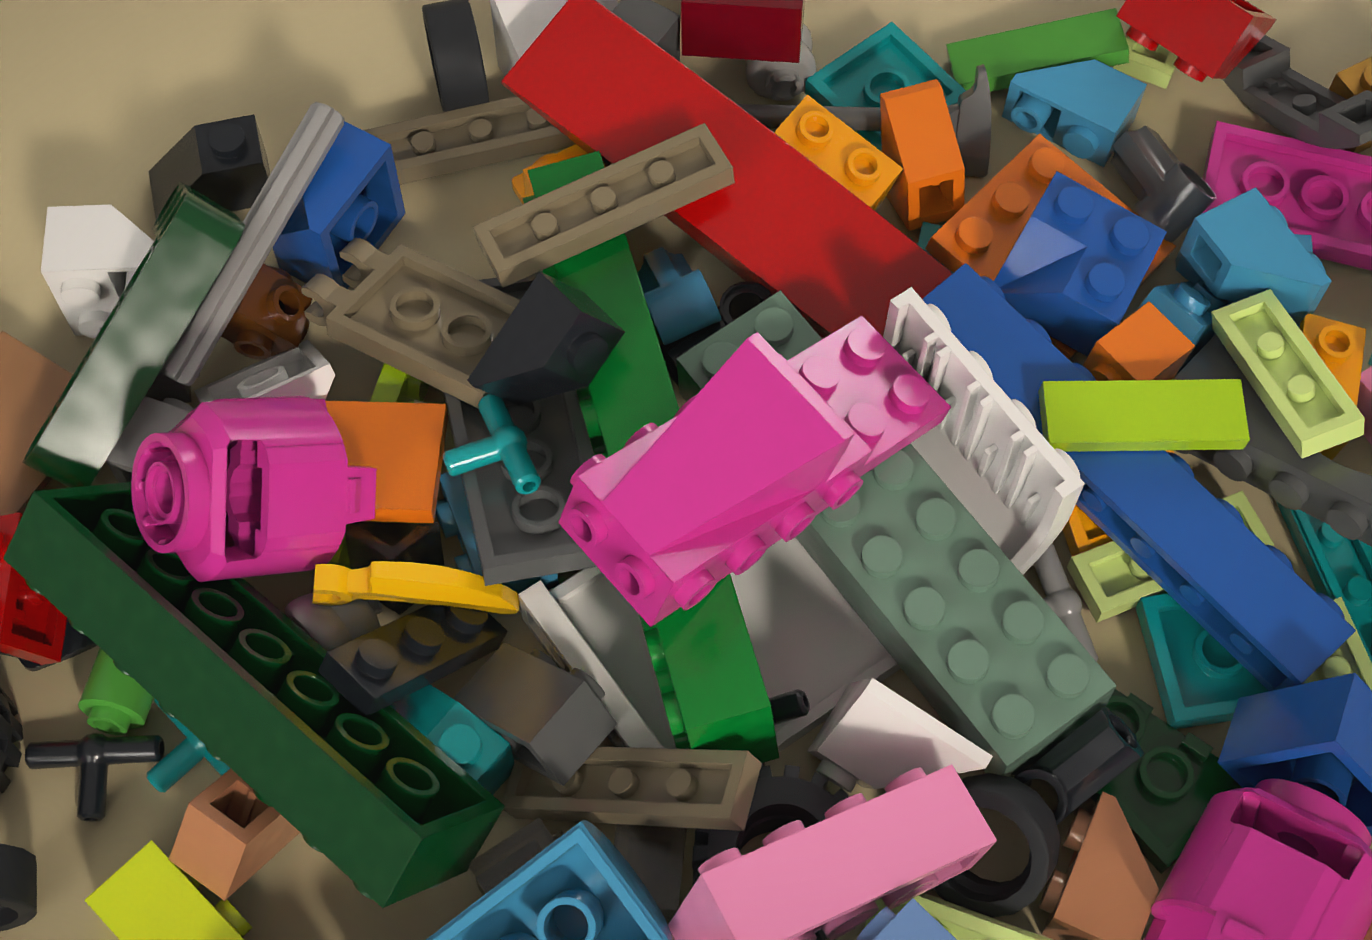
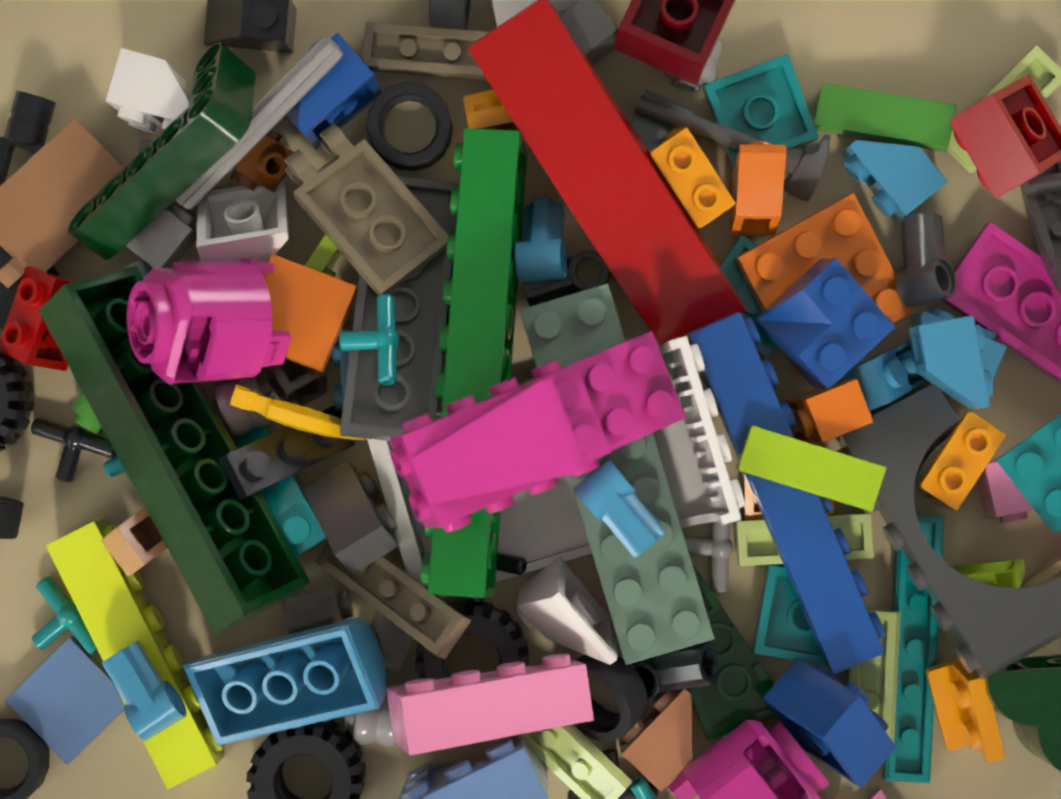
camera: 20 degrees right, 25 degrees up
(444, 193) = (401, 93): none -> black tyre
(547, 344) = (433, 286): black slope -> none
(604, 204) = (503, 189): dark tan plate -> none
(896, 529) = (613, 500): none -> dark azure piece
(1287, 374) = (926, 461): yellowish green plate -> none

